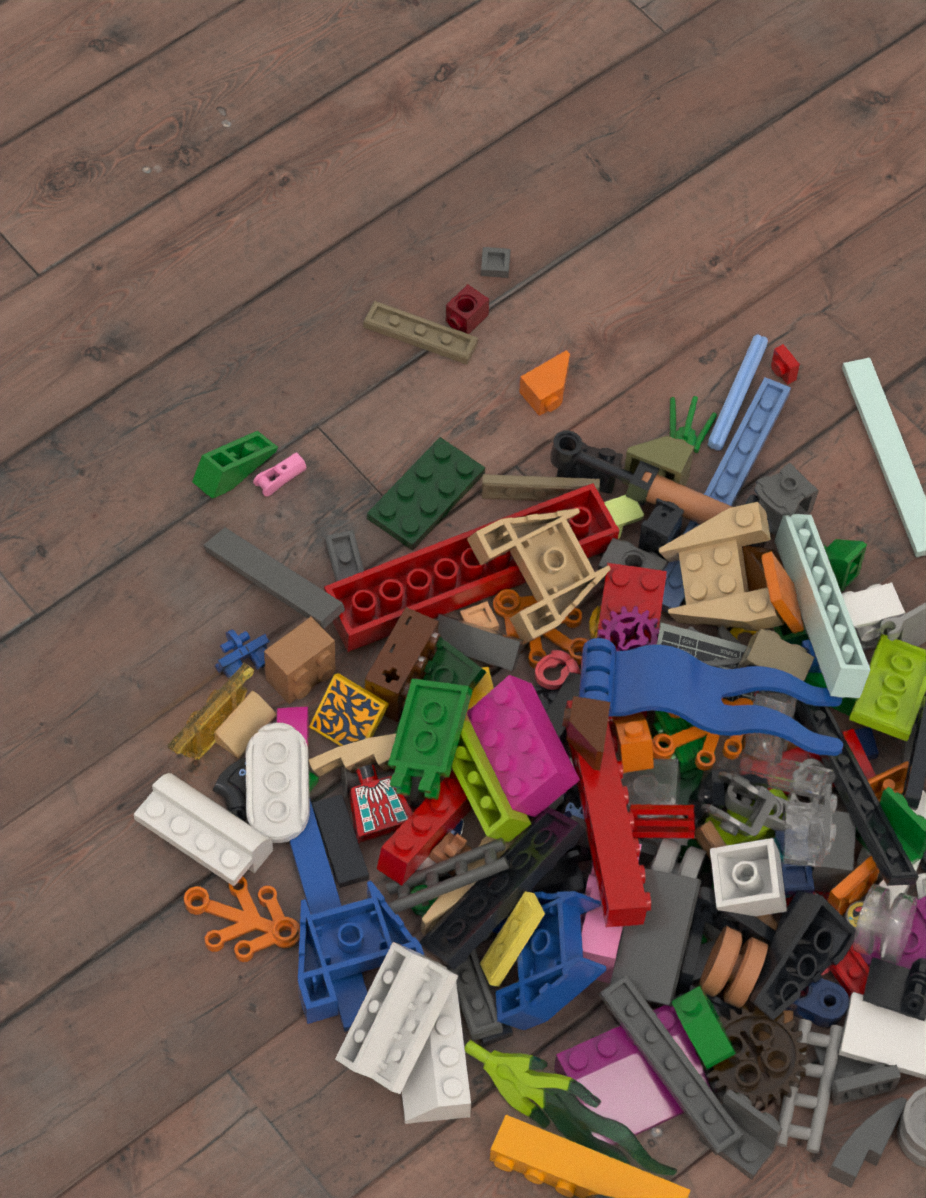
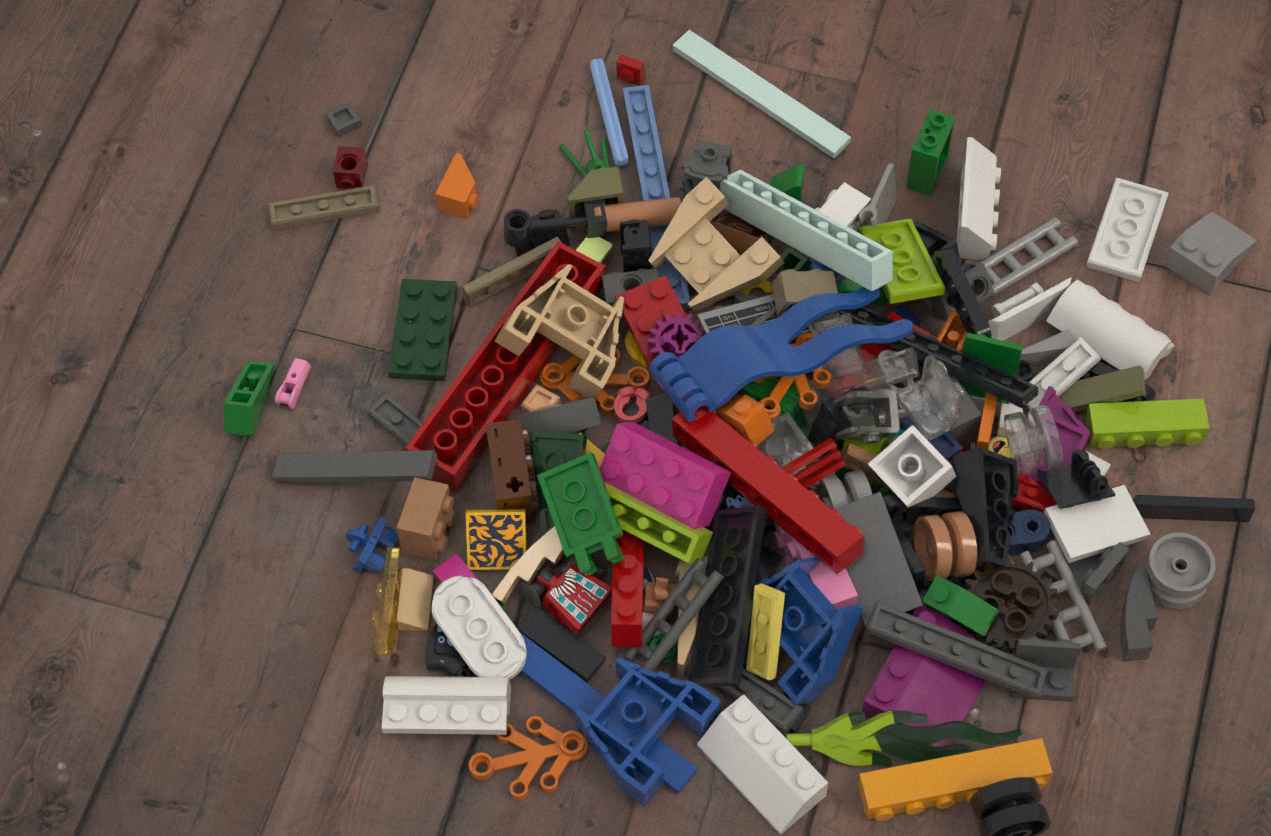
camera: 30 degrees left, 0 degrees up
(396, 1017) = (723, 752): white brick -> none
(587, 728) = (710, 428): reddish brown slope -> none
(782, 592) = (772, 237): orange tile -> none

